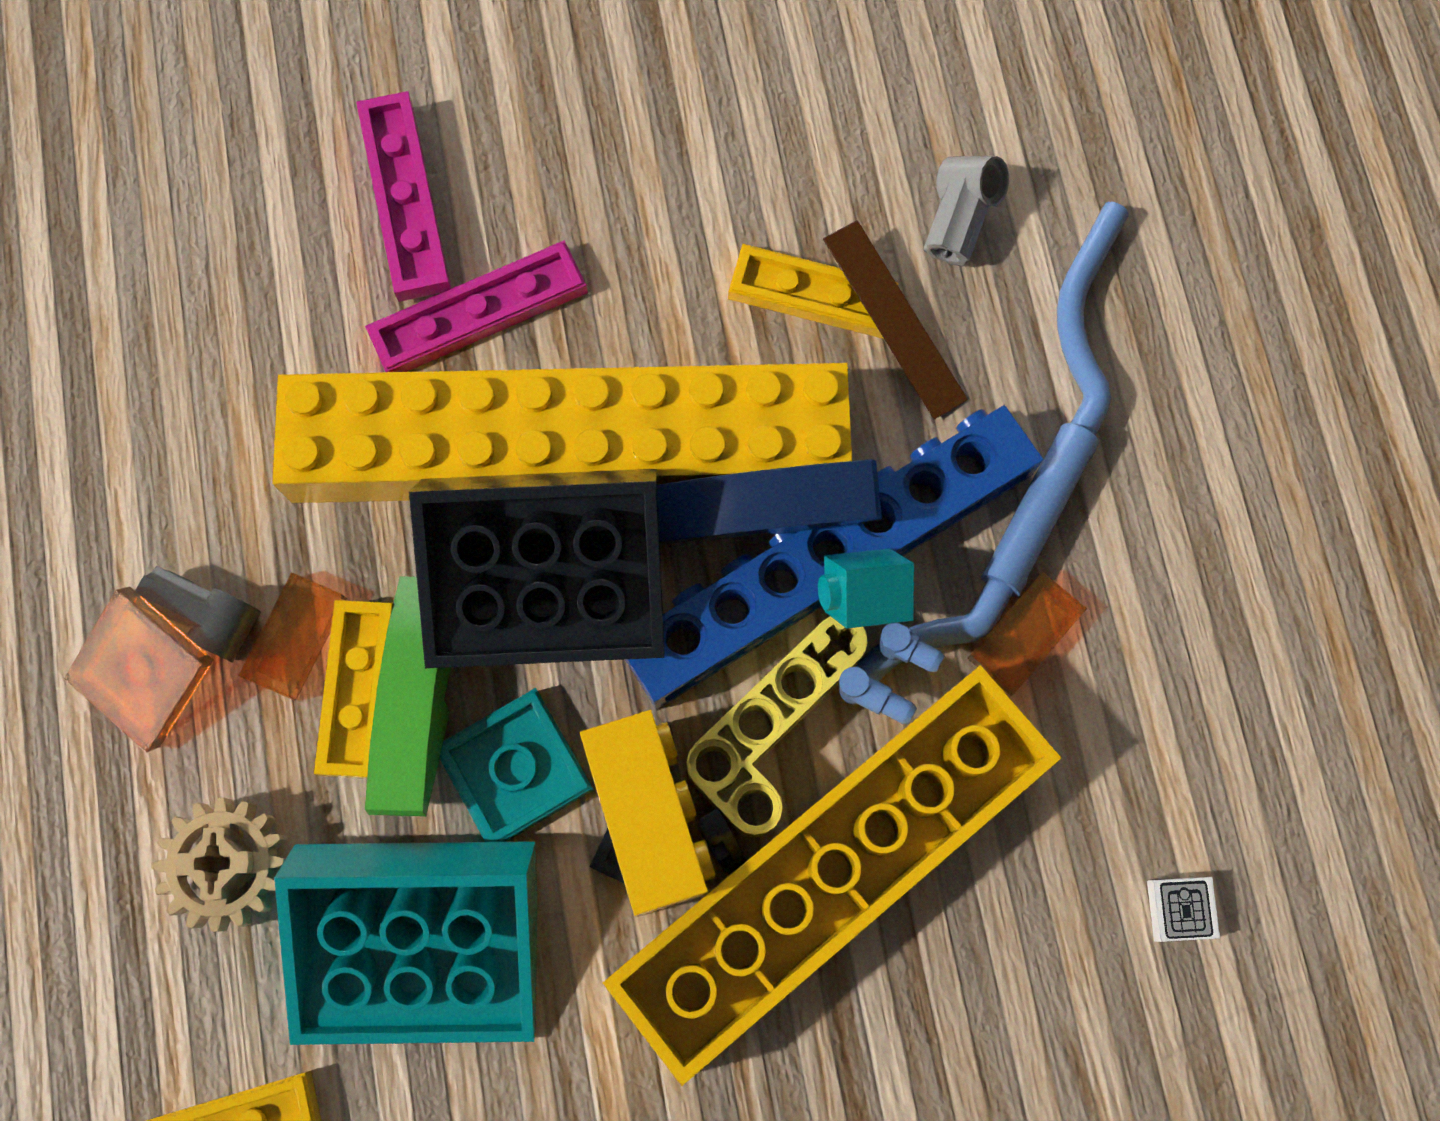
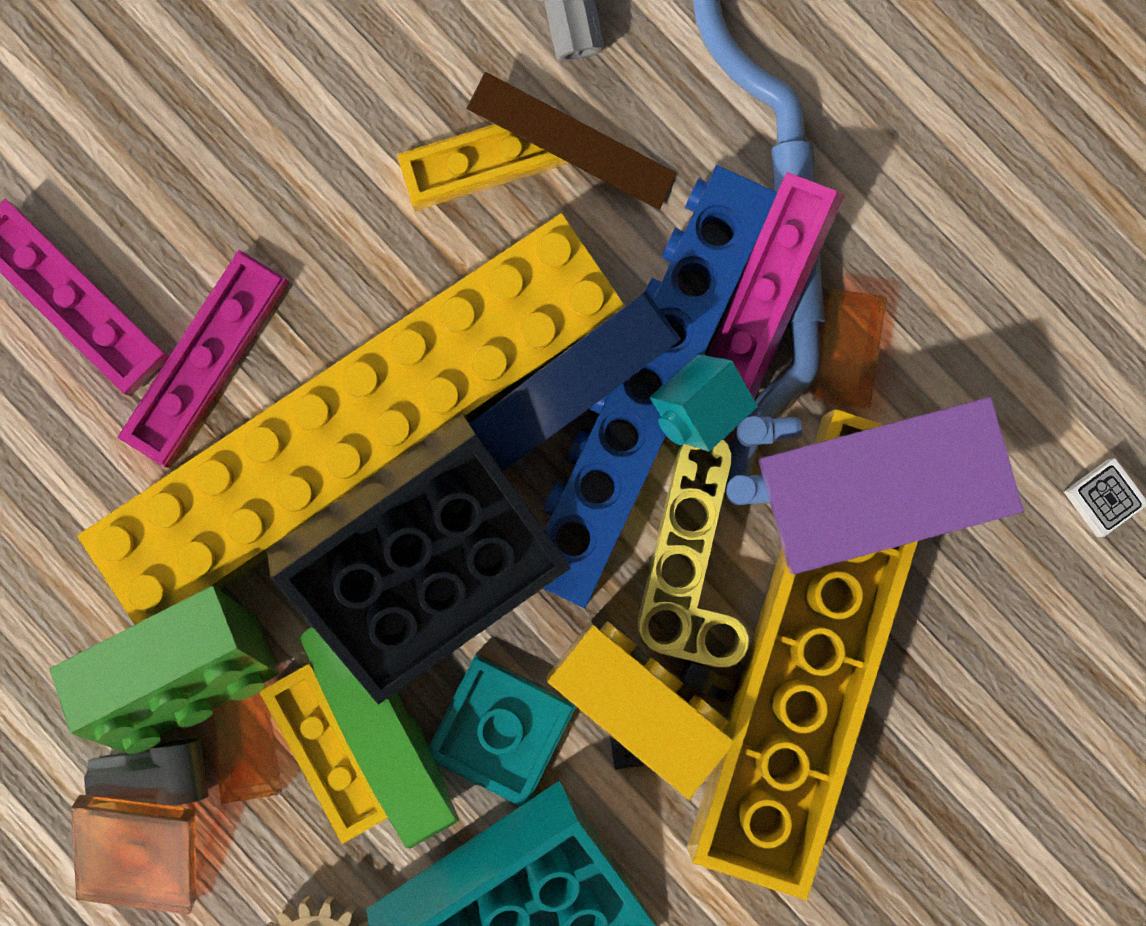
camera: 30 degrees left, 10 degrees up
(270, 529) = (164, 672): none -> bright green brick
(989, 759) = (890, 485): none -> medium lavender tile
(997, 527) = (775, 277): none -> dark pink plate

